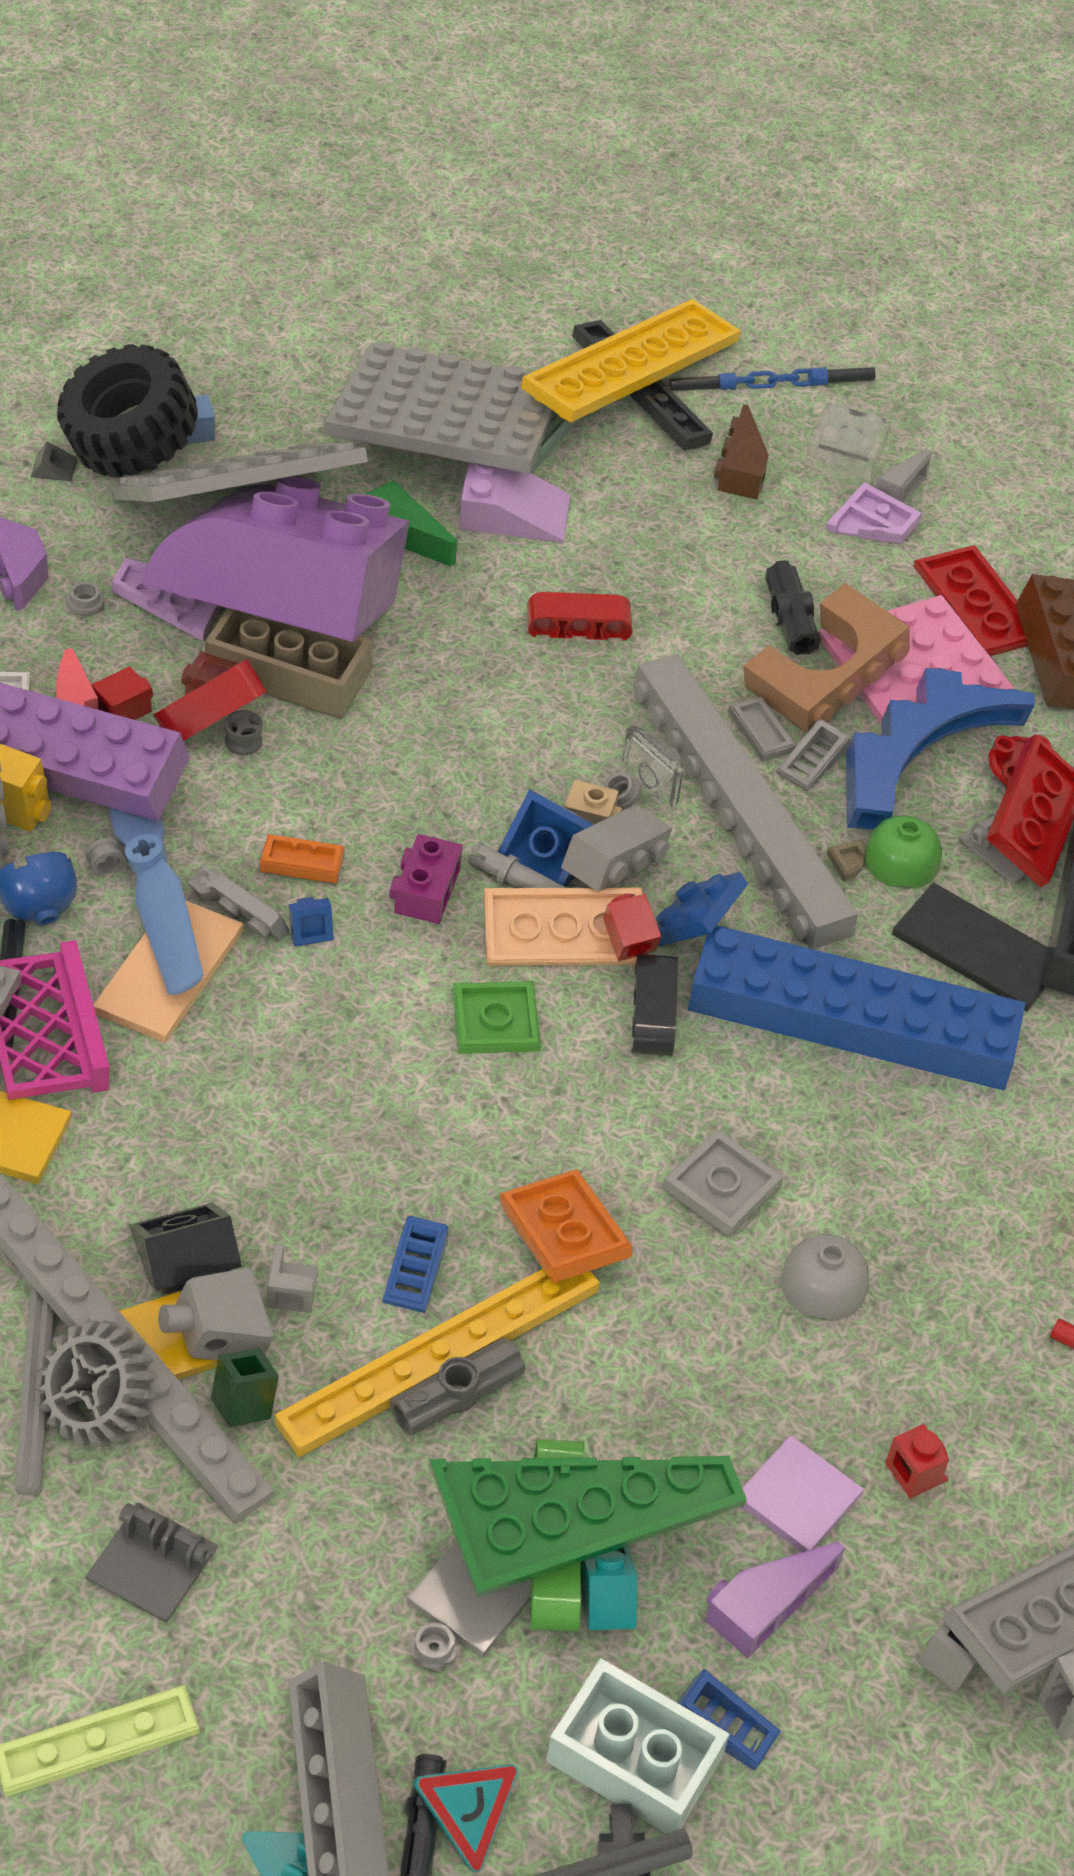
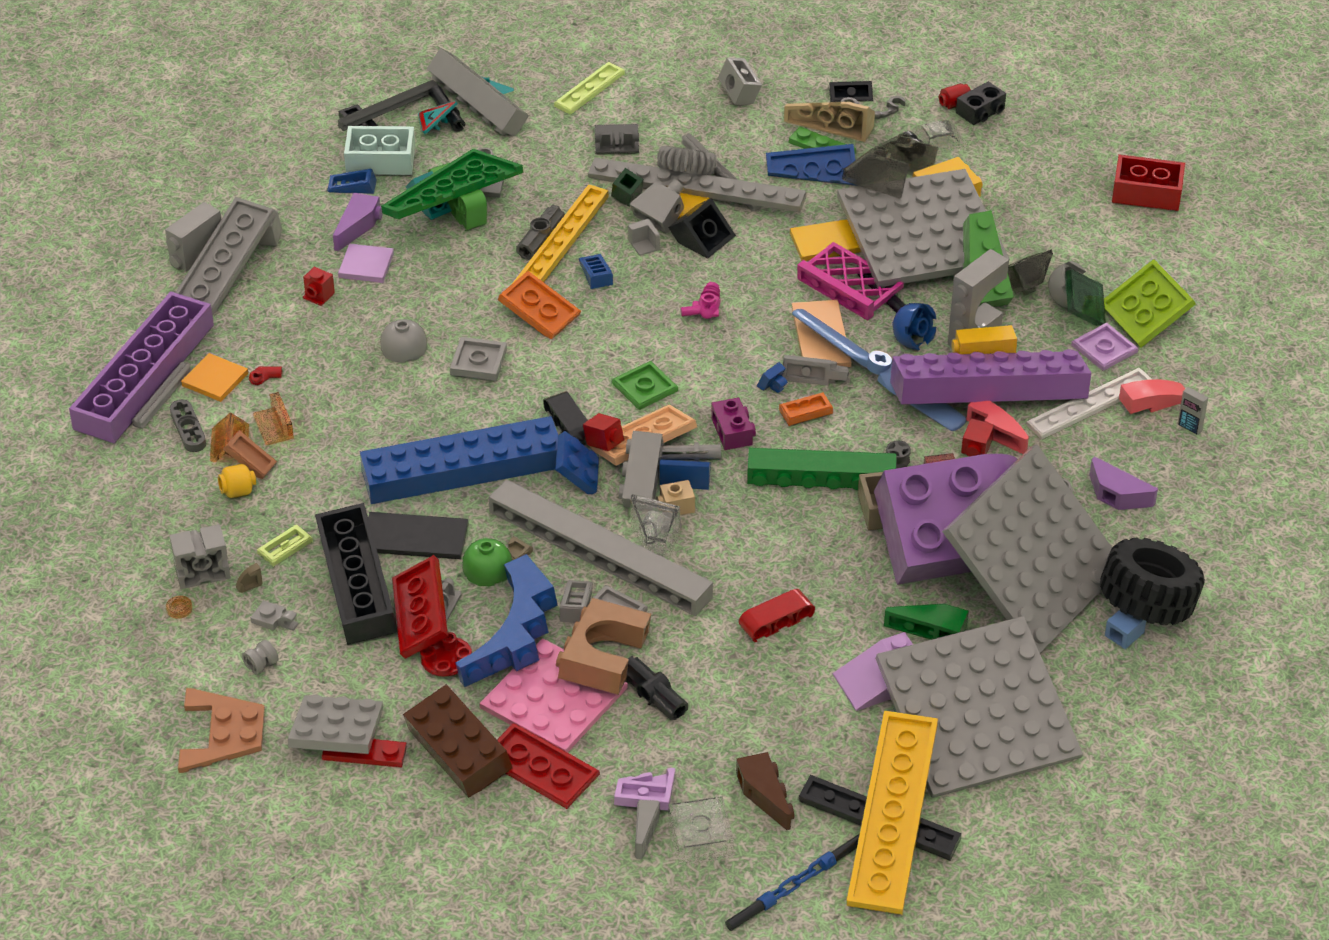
camera: 155 degrees right, 5 degrees down
(212, 701) = (923, 443): red beam -> none
(292, 1097) = (707, 305): none -> dark pink piece
(365, 758) = (814, 467): none -> green brick

